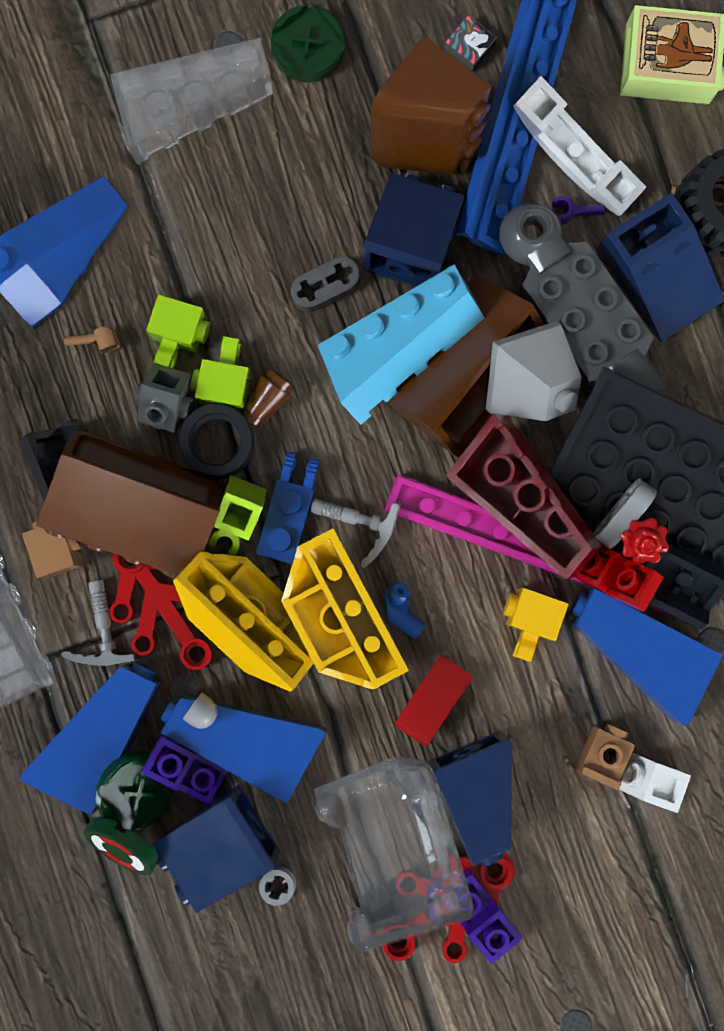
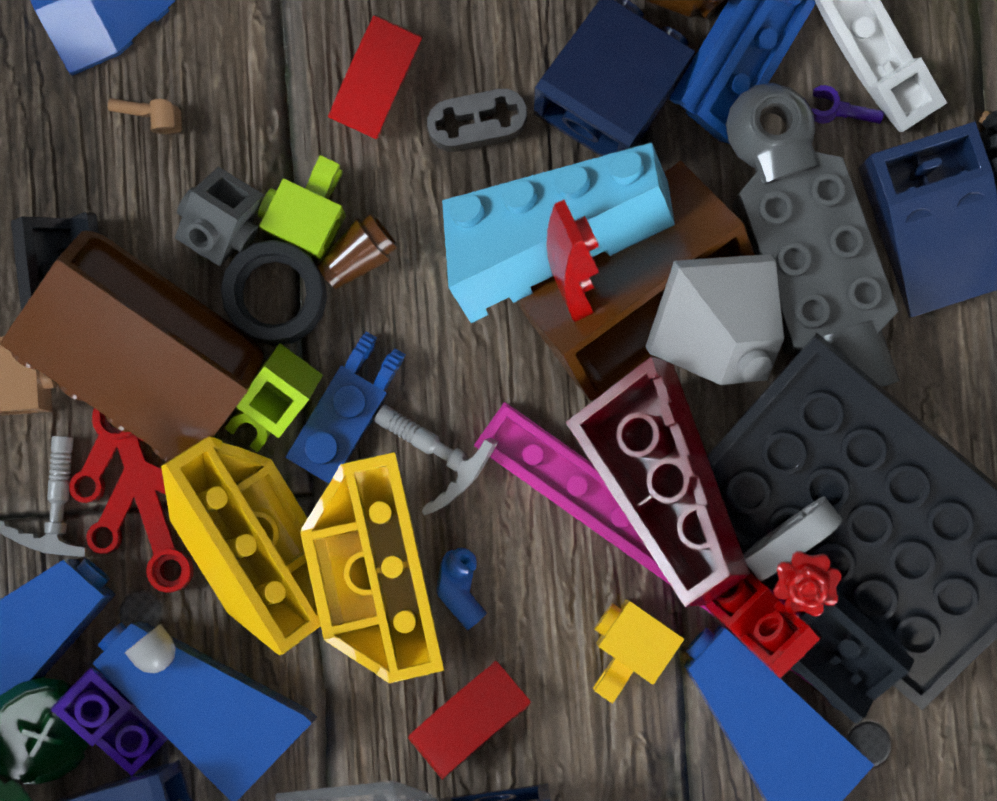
camera: 20 degrees right, 0 degrees up
(176, 327) = (263, 126): lime brick -> none
(246, 272) = (375, 76): none -> red slope
(421, 359) = (570, 258): none -> red slope

